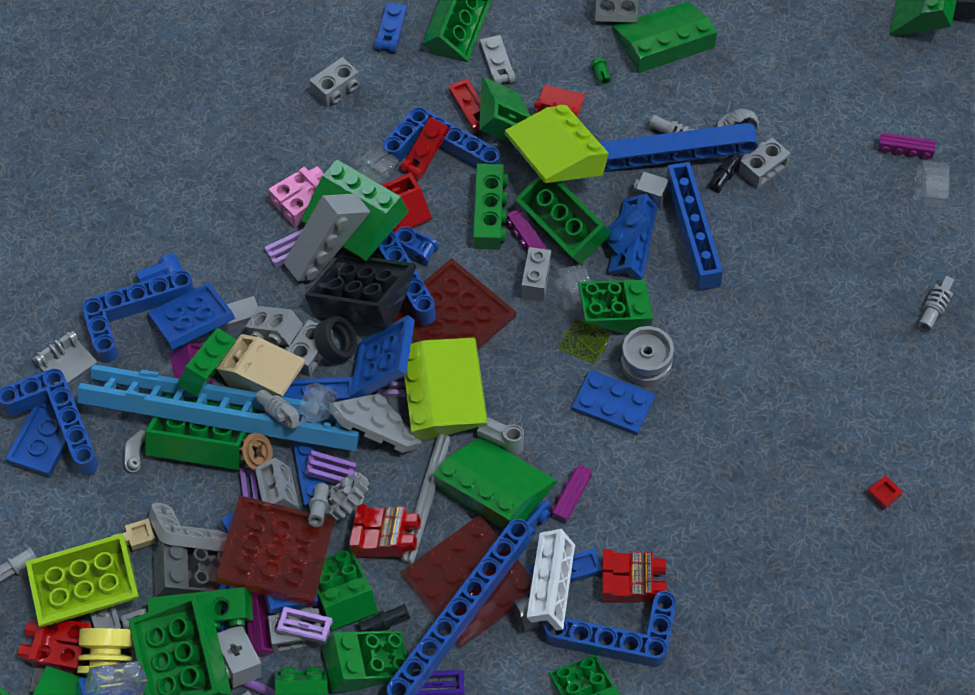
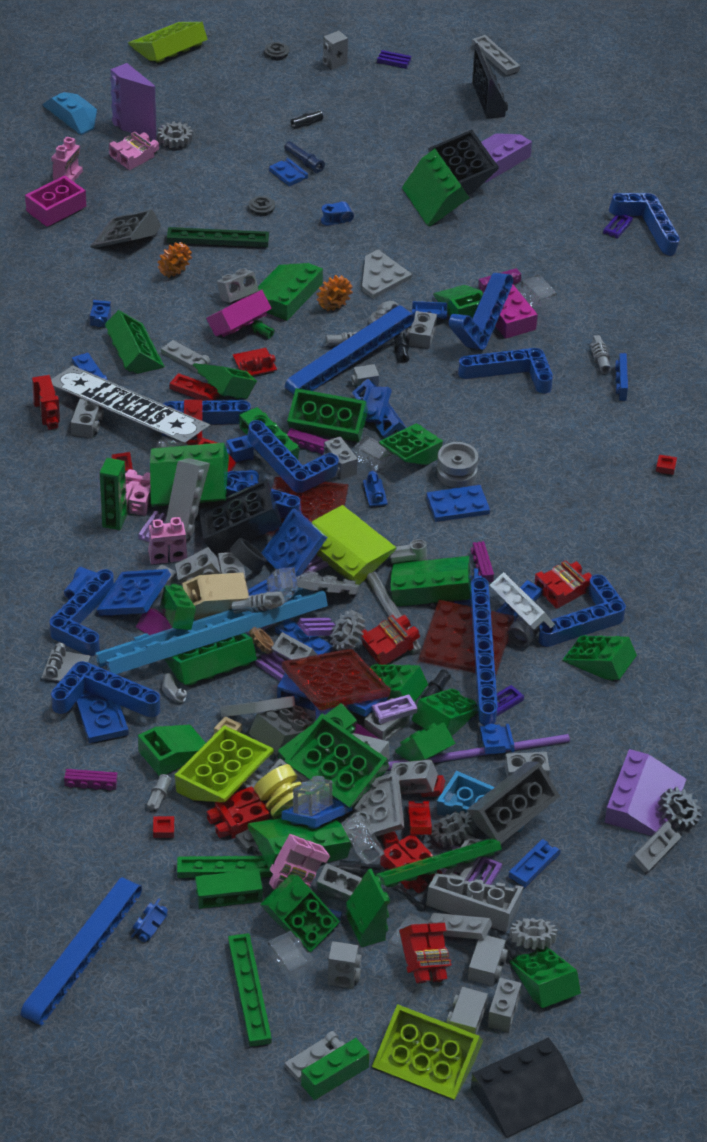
camera: 40 degrees left, 15 degrees down
(67, 520) = (169, 747): none -> green slope
(257, 190) = (113, 494): none -> green brick
(272, 275) = (167, 539): none -> bright pink hips
(309, 43) = (45, 398): none -> red hips
(318, 505) = (336, 643): light grey pin -> none
(322, 153) = (124, 457): none -> red plate
(380, 91) = (129, 404): none -> sticker
(446, 204) = (240, 449): none -> blue brick
(466, 249) = (297, 476): none -> blue beam
(540, 335) = (374, 490): none -> blue hinge
(558, 145) = (290, 371): lime slope -> none
(583, 41) = (239, 314): none -> dark pink brick
(584, 341) = (405, 481): clear neon green piece -> none
(694, 226) = (416, 382): blue brick -> none
(704, 68) = (334, 293): none -> orange gear
(785, 69) = (382, 274): none -> light grey plate
(796, 144) = (430, 307): none -> blue hinge
(820, 260) = (509, 362): none -> blue beam
(836, 153) = (460, 300): none -> green slope
(839, 185) = (477, 331): none -> blue beam
(878, 192) = (516, 316): none -> dark pink brick
(933, 347) = (621, 377): none -> blue plate

